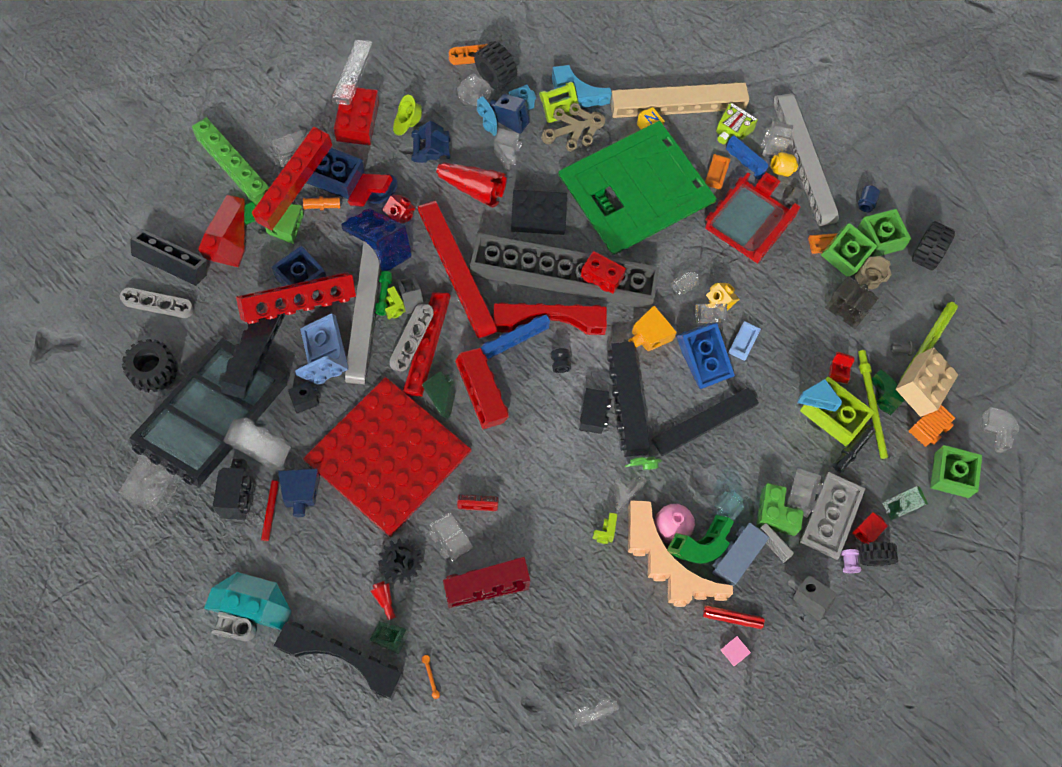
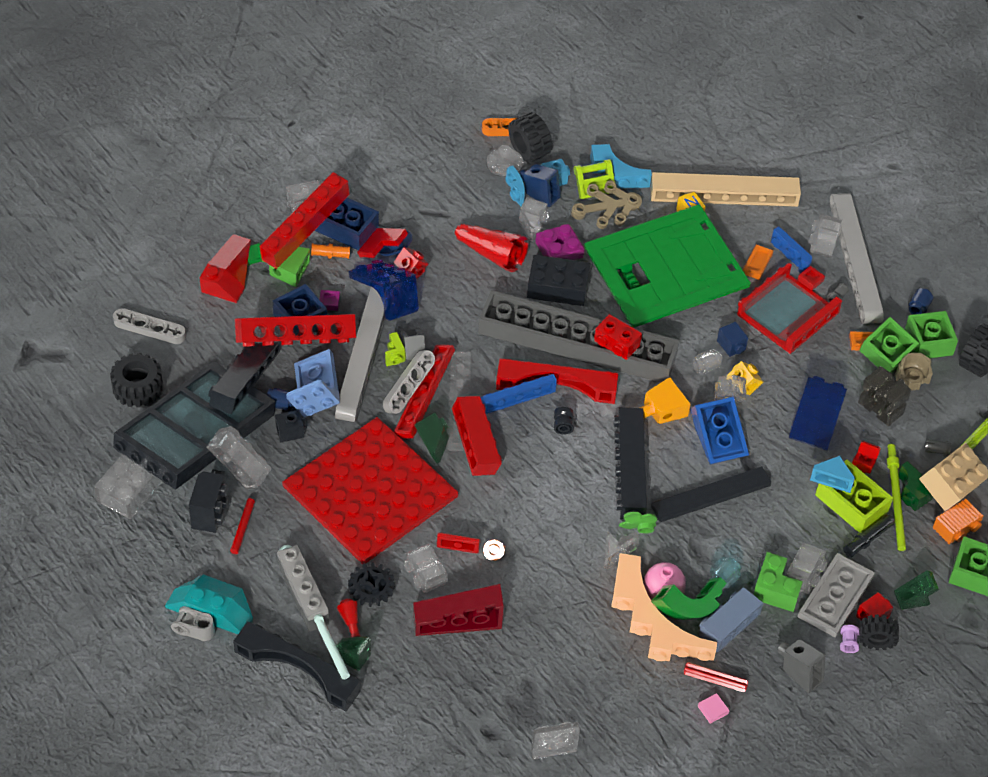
camera: 10 degrees right, 15 degrees down
(168, 257) = (167, 284): black brick -> none
(230, 160) = (240, 201): bright green brick -> none
(289, 367) = (279, 396): none -> dark blue brick
(299, 489) = (276, 508): dark blue torso -> none
(326, 256) = (330, 299): none -> magenta plate
(343, 590) = (308, 599): none -> light grey piece
(352, 72) = (378, 130): clear tile -> none
(357, 121) = (377, 172): red brick -> none
(385, 279) = (387, 327): green bar -> none
(408, 115) = (431, 177): lime piece -> none
(426, 659) = (386, 678): orange hinge -> none
(436, 143) = (457, 207): dark blue piece -> none
(457, 269) = (464, 325): red beam -> none
(511, 507) = (494, 549): none -> plate
(526, 171) = (560, 243): none -> magenta brick
(594, 411) = (592, 470): black brick -> none
(609, 526) = (590, 584): lime bracket -> none
(705, 256) = (732, 339): none -> dark blue brick
(735, 123) = (783, 215): torso -> none
(744, 340) = (764, 424): light blue tile -> none
(776, 544) = (771, 613): light grey tile -> none
(784, 164) = (831, 260): yellow head -> none
(793, 326) = (818, 412): none -> clear blue bracket

